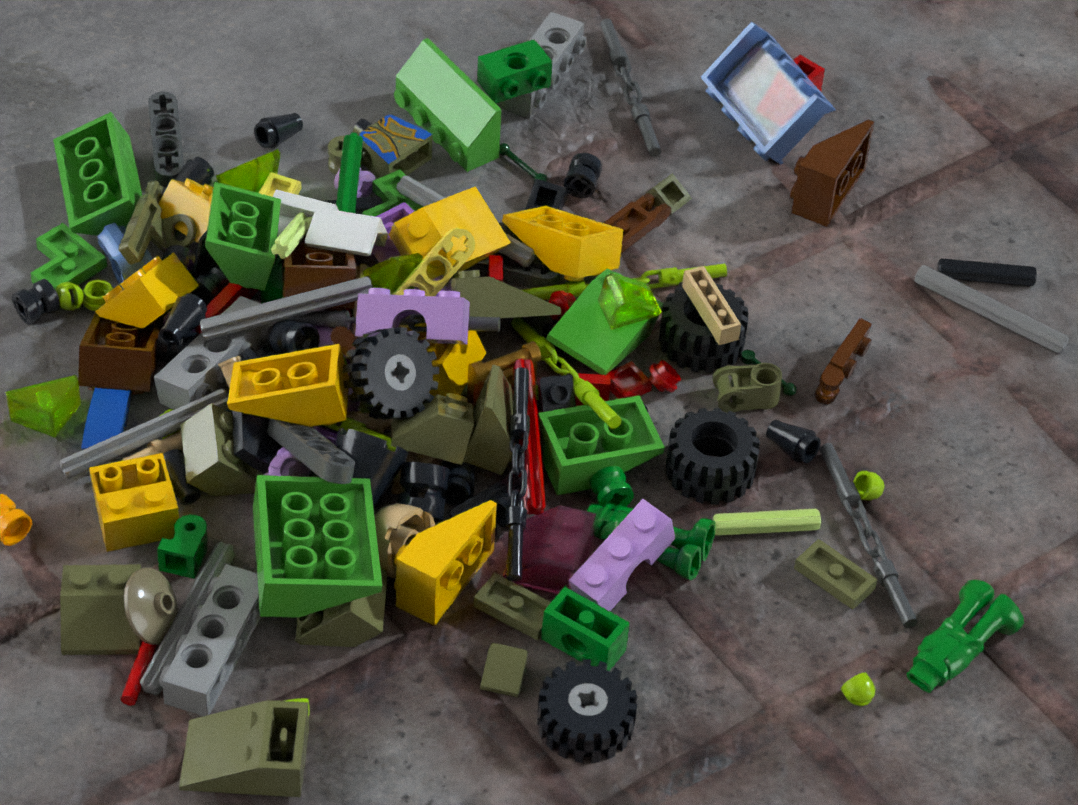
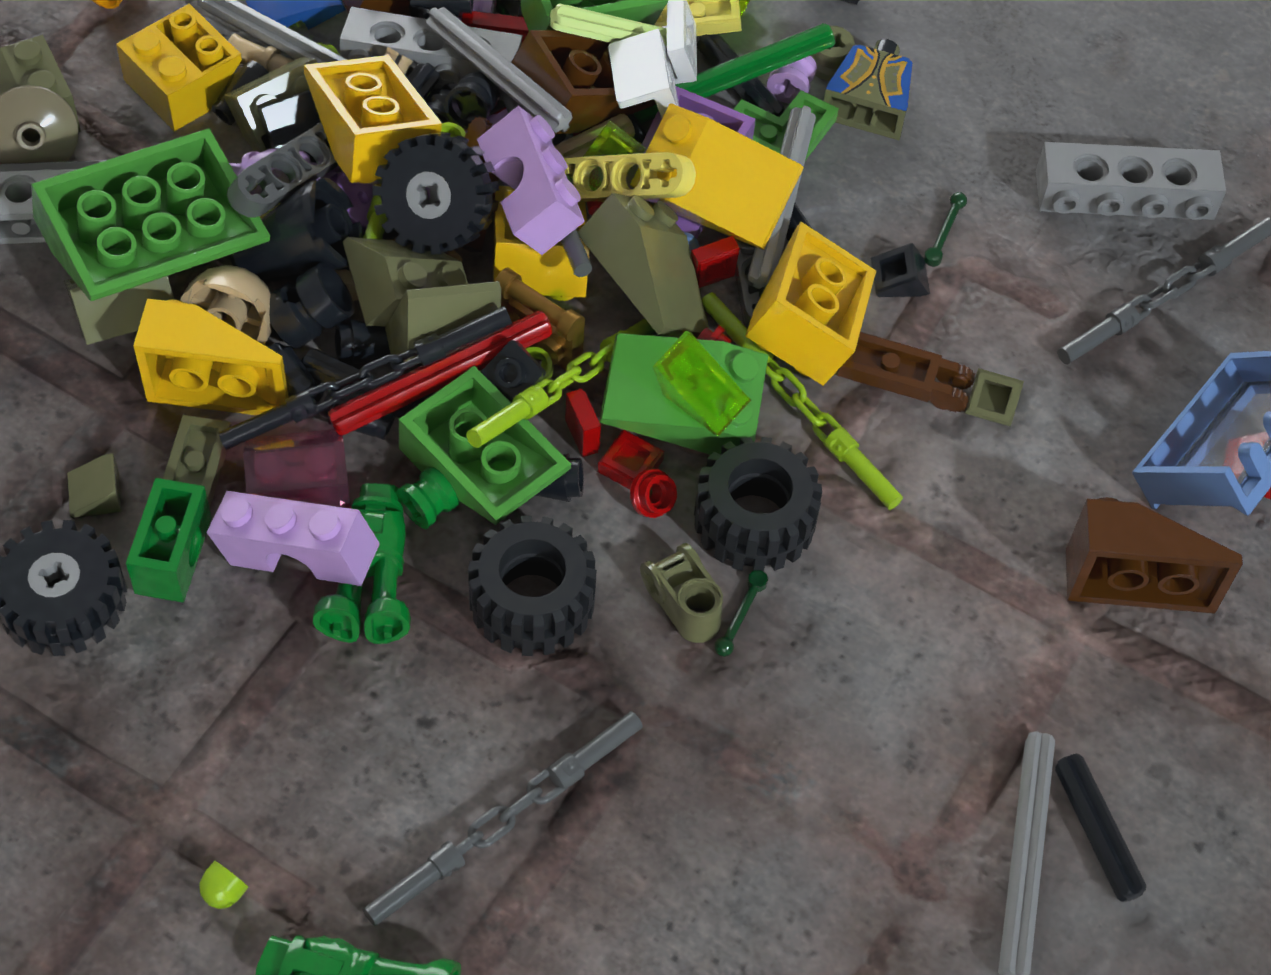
camera: 65 degrees right, 10 degrees up
(186, 550) = (144, 129): green leg -> none
(449, 106) = (967, 115): bright green slope -> none
(514, 71) = (1060, 143): green brick -> none
(583, 175) = (957, 290): black wheel -> none
(711, 305) = (753, 482): tan piece -> none
(767, 522) = (467, 691): yellowish green axle -> none
(796, 441) = (620, 678): black cone -> none
(835, 574) = (408, 797): olive plate -> none
(843, 362) = (798, 688): reddish brown hinge -> none
(869, 485) = (590, 793): lime hinge -> none

